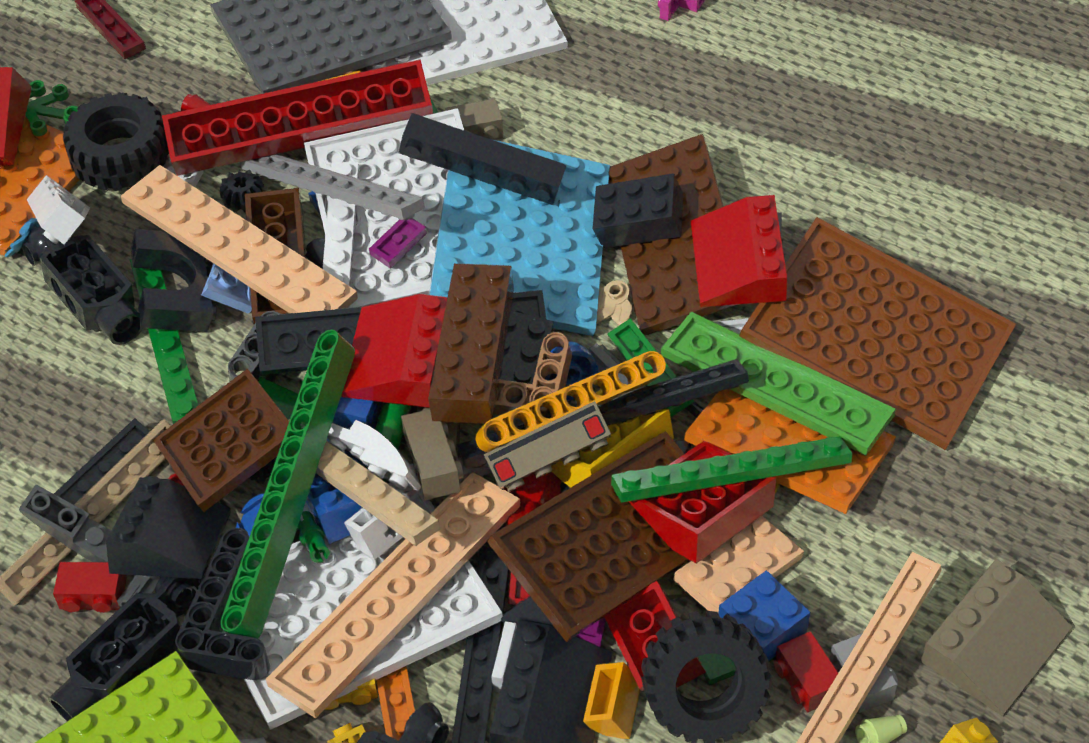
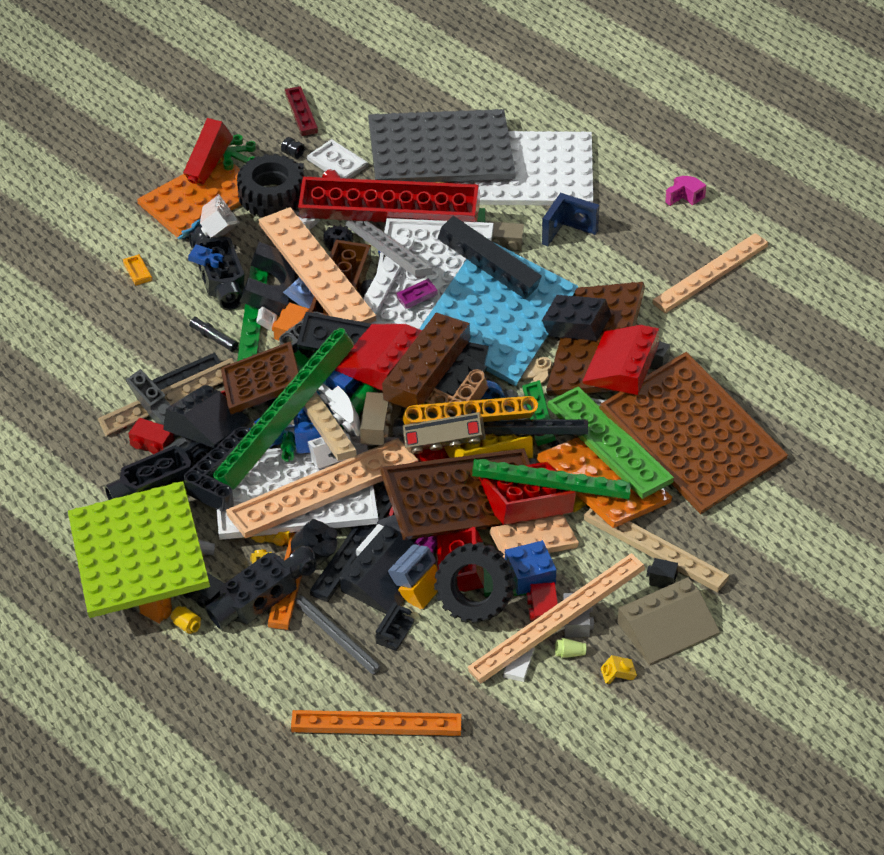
camera: 20 degrees right, 5 degrees down
(61, 273) = (203, 255): none -> blue plate
(96, 383) = (207, 330): none -> black pin
(121, 79) = (291, 147): none -> black wheel
(184, 76) = (337, 158): none -> white tile
(189, 341) = (266, 318): none -> white tile
(226, 334) = (288, 318): none -> orange brick
(421, 680) = (319, 537): none -> black brick
(546, 69) = (567, 212): none -> dark blue bracket
(591, 677) = (412, 566): none -> sand blue brick
(769, 98) = (710, 273): none -> light nougat plate
(928, 526) = (661, 549): none -> tan plate
(954, 561) = (662, 573): none -> black brick

